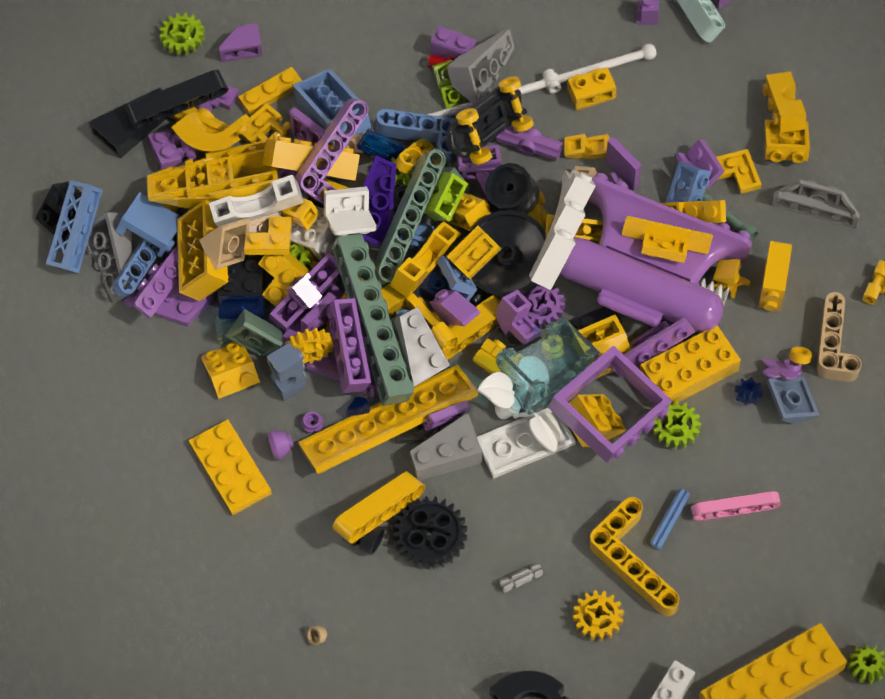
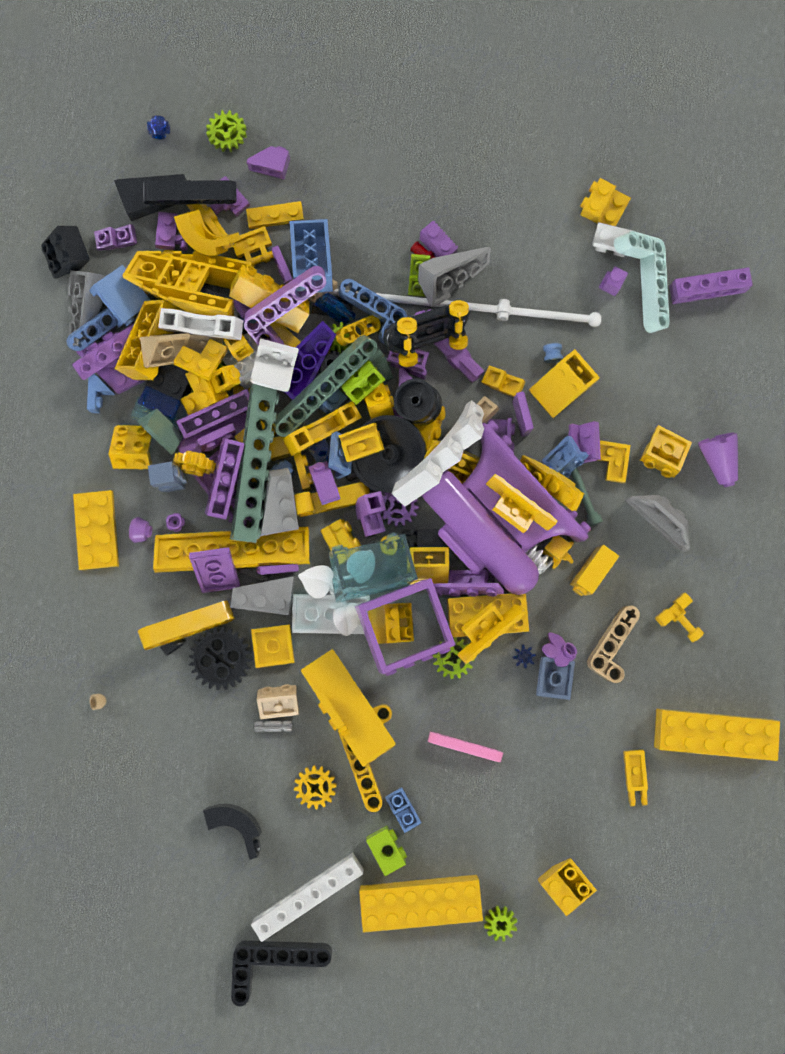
camera: 20 degrees right, 20 degrees up
(79, 227) = (61, 274): medium blue fence -> none
(109, 58) = (158, 127): none -> clear blue gear
(113, 179) = (115, 238): none -> medium lavender slope
(166, 327) = (96, 388): none -> medium blue slope
(299, 254) = (230, 378): none -> yellow brick
(305, 292) = (208, 418): brick -> none
(359, 406) = (215, 528): clear blue tile -> none
(382, 440) = (214, 570): none -> medium lavender tile
(479, 497) = (272, 646): none -> yellow plate
(514, 549) = (277, 701): none -> tan bracket
(591, 88) = (531, 331): yellow brick -> none
(592, 514) = (347, 708): none -> yellow bracket
(623, 98) = (552, 353): none -> medium blue wheel
(650, 120) = (564, 383): none -> yellow slope
(669, 519) = (412, 730): medium blue axle -> none
(694, 369) = (486, 628): none -> yellow bracket
(704, 600) = (403, 810): none -> medium blue slope
(712, 657) = (387, 862): none -> lime brick
(787, 112) = (678, 432): yellow arch -> none
(800, 355) = (580, 644): yellow tile -> none
(845, 120) = (722, 457): none -> medium lavender cone

